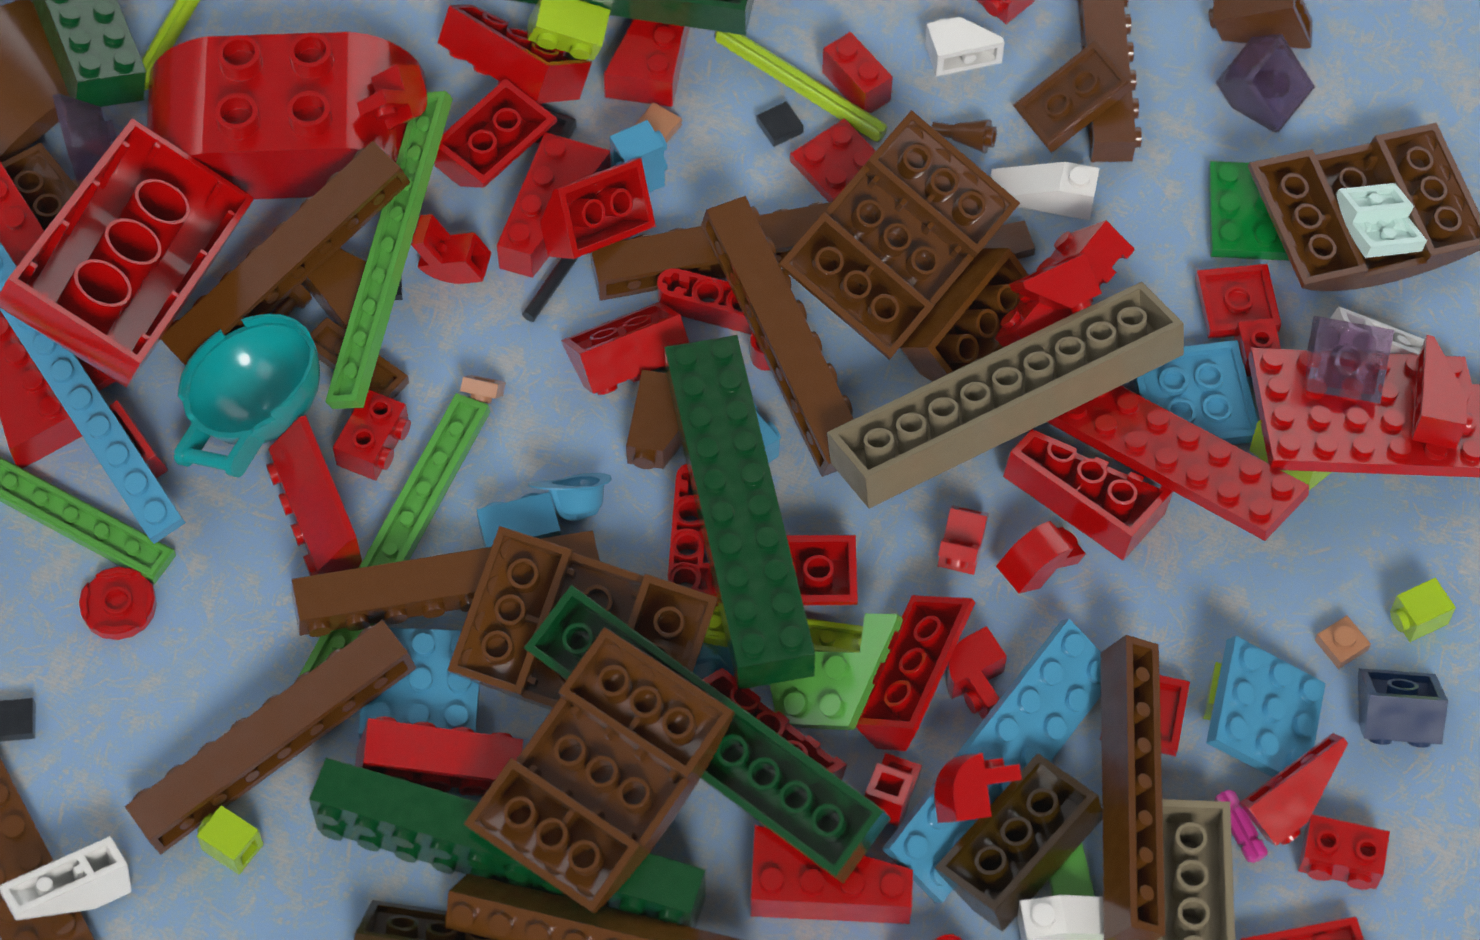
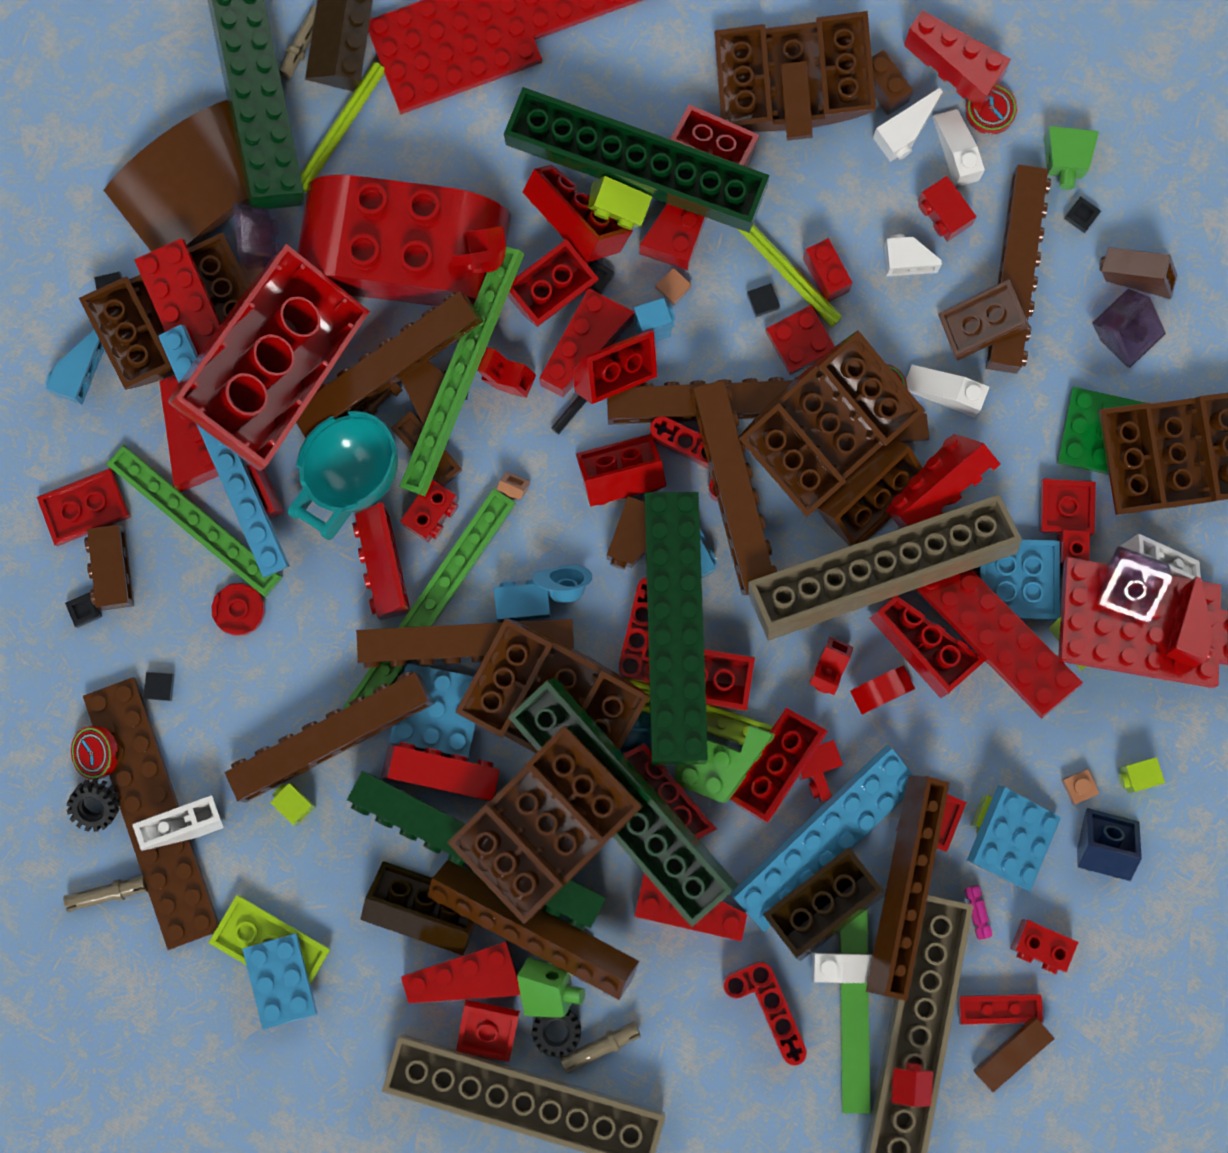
camera: 10 degrees right, 20 degrees up
(893, 786) = (745, 847): red brick -> none
(963, 788) = (793, 864): red brick -> none
(974, 134) = (903, 334): reddish brown cone -> none
(1061, 285) = (939, 489): red slope -> none
(1292, 795) = (1019, 902): red slope -> none
(1380, 220) = (1186, 467): light aqua slope -> none

